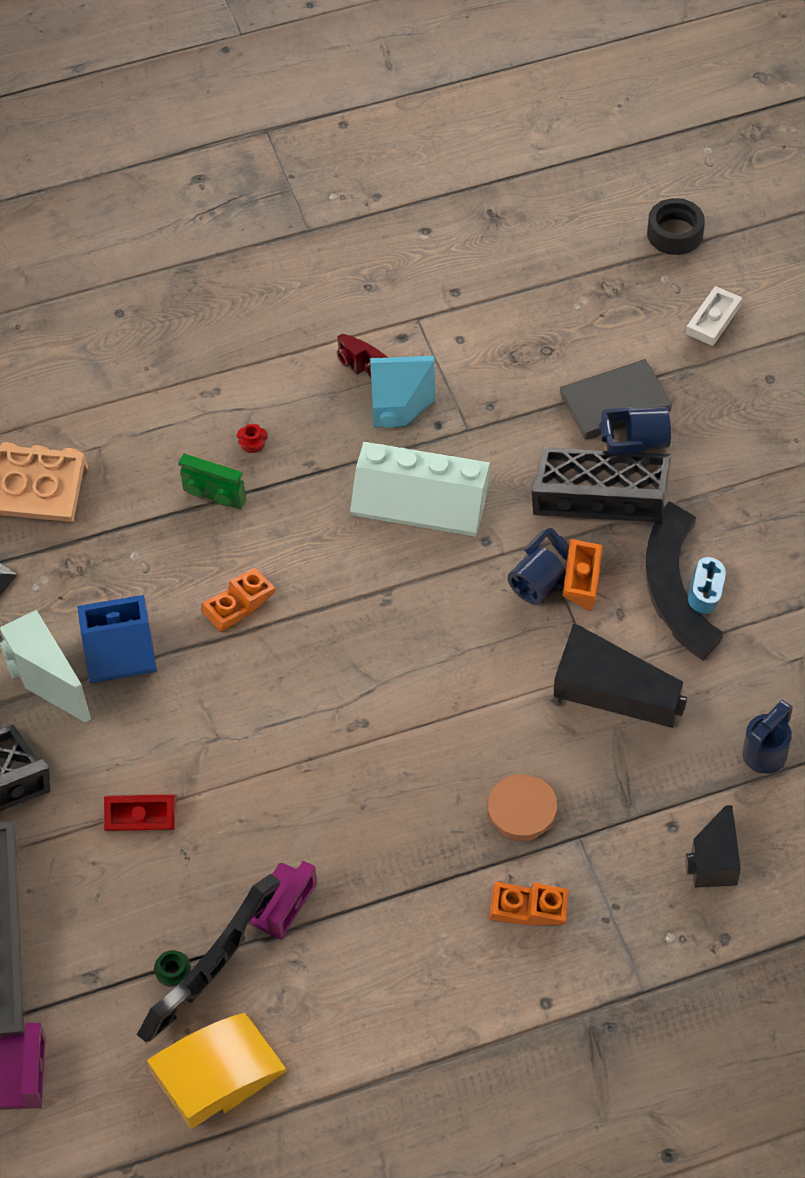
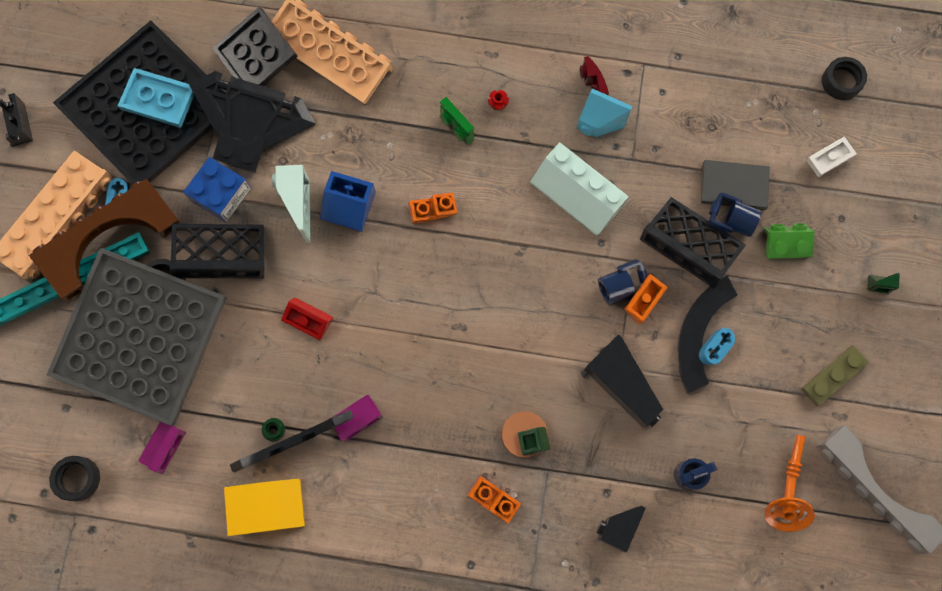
camera: 25 degrees right, 20 degrees up
(538, 804) = (534, 440): none -> dark green slope
(722, 430) = (789, 241): none -> bright green bracket

